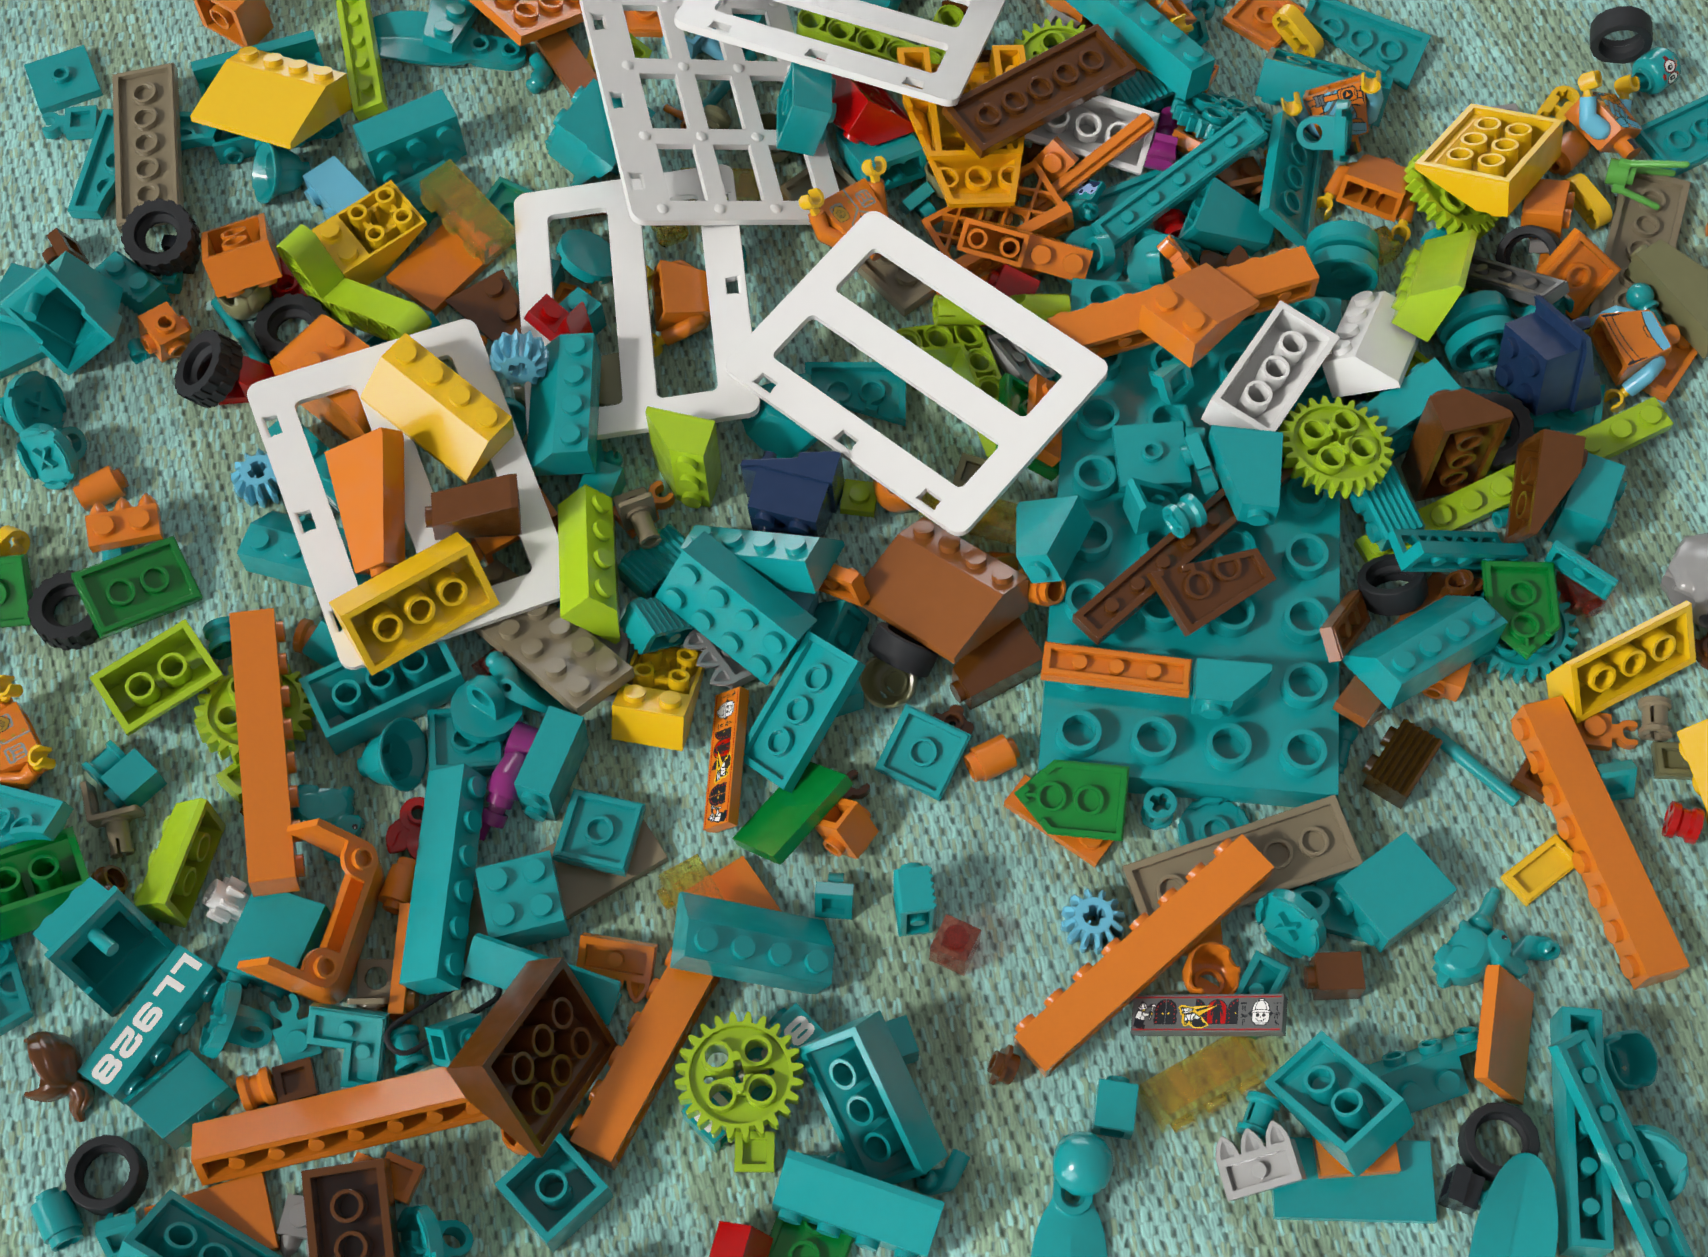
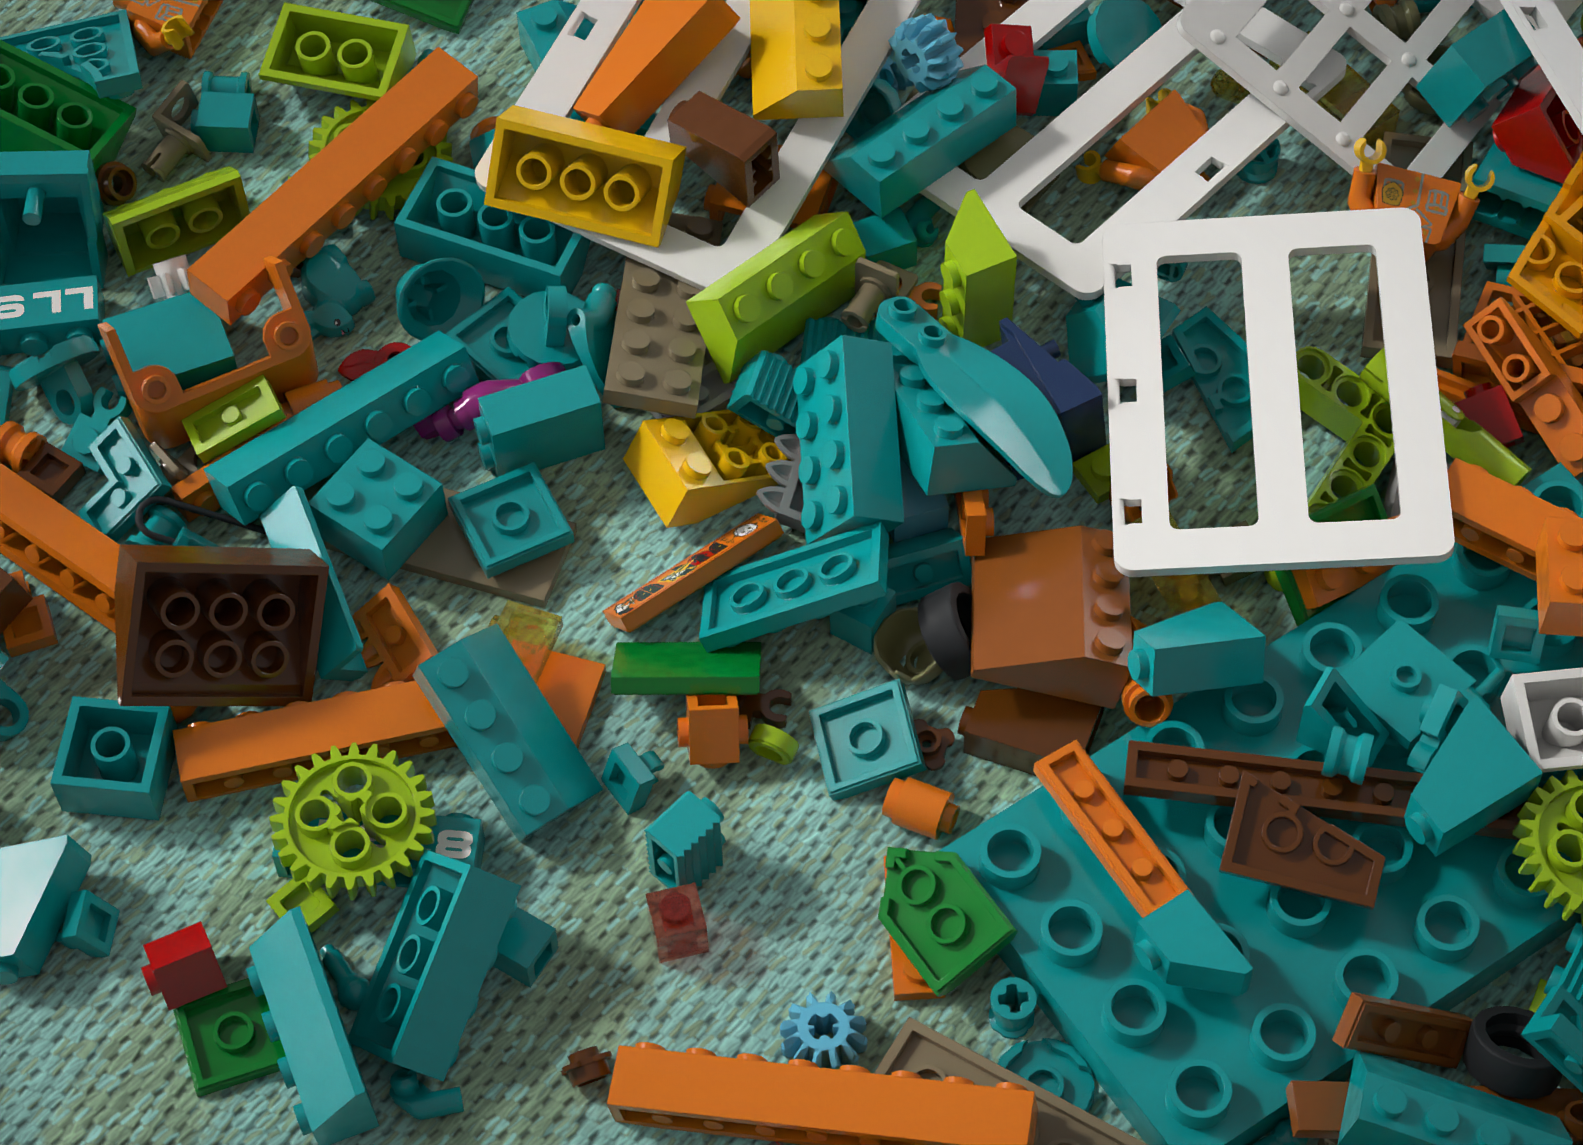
camera: 50 degrees right, 5 degrees down
(377, 938) = (233, 418): none -> lime plate
(776, 510) = (984, 393): none -> teal plant
(882, 803) = (773, 744): none -> lime tile

